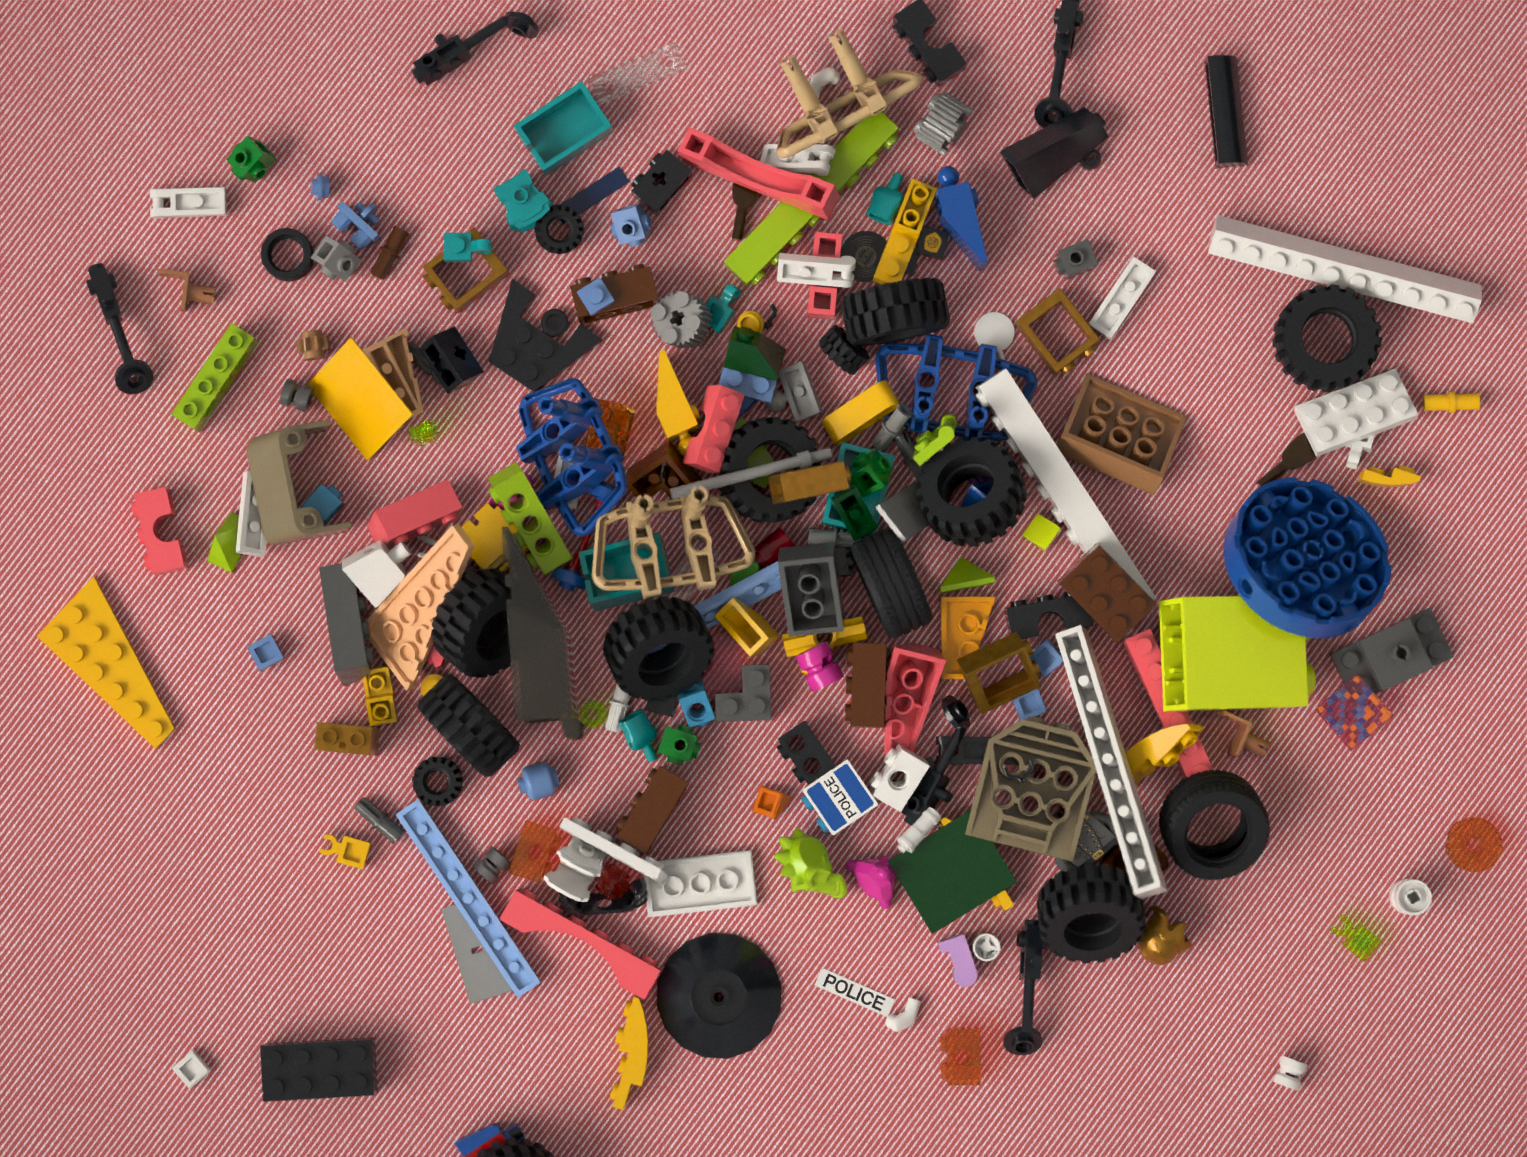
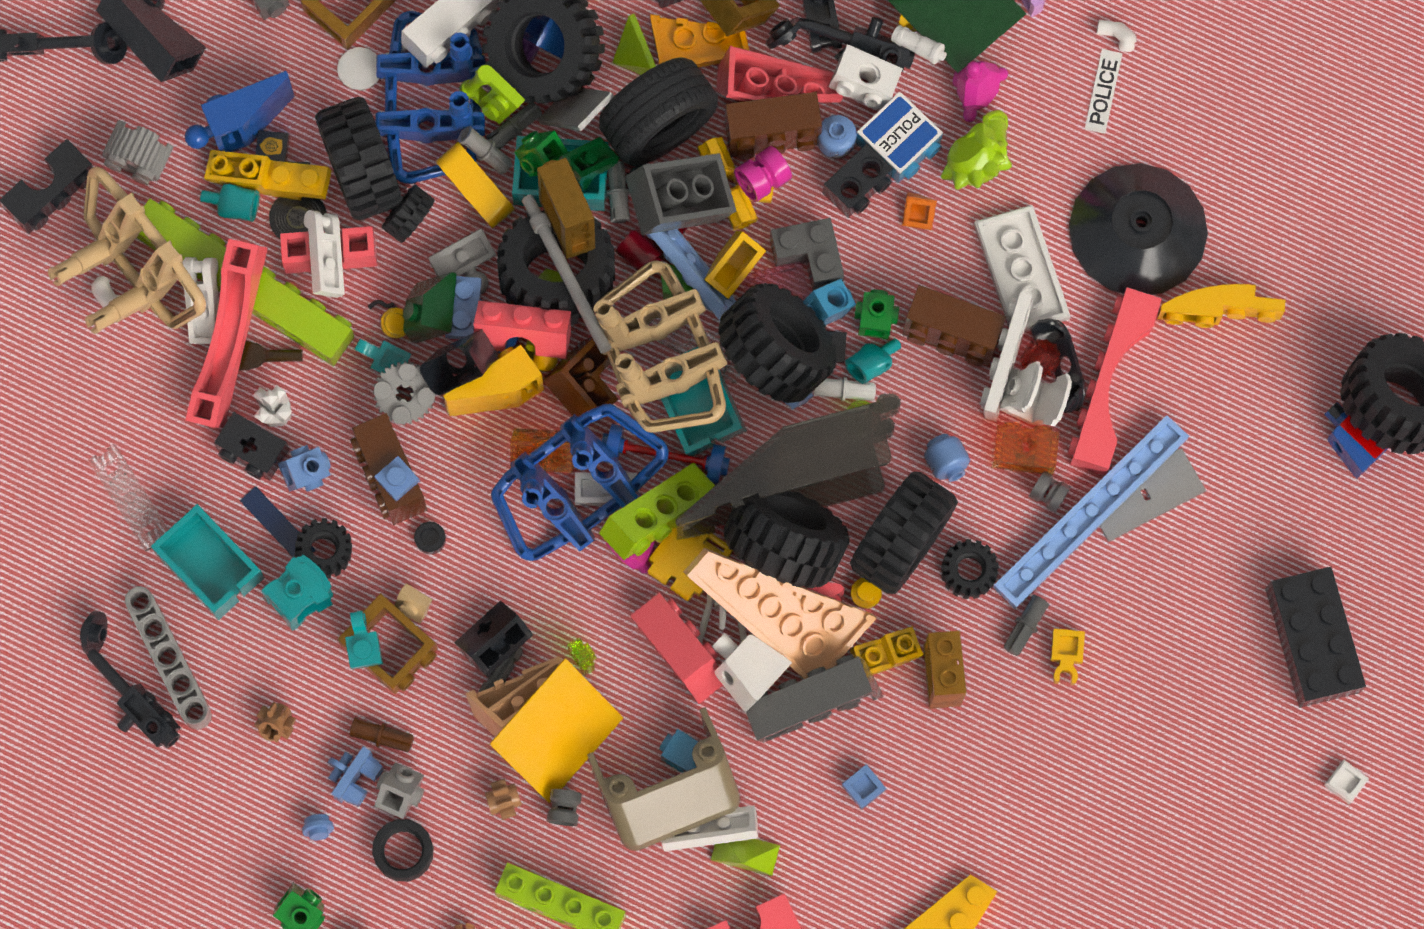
camera: 105 degrees left, 10 degrees down
(415, 164) = (275, 722): none -> medium nougat gear
(496, 296) = (413, 603): none -> tan plate
(499, 74) = (157, 647): none -> light grey beam
(529, 353) = (469, 560): black wing -> none
(691, 207) = (274, 406): none -> white rock
(692, 382) = (439, 372): none -> black piece
(849, 741) = (837, 136): none -> medium blue head

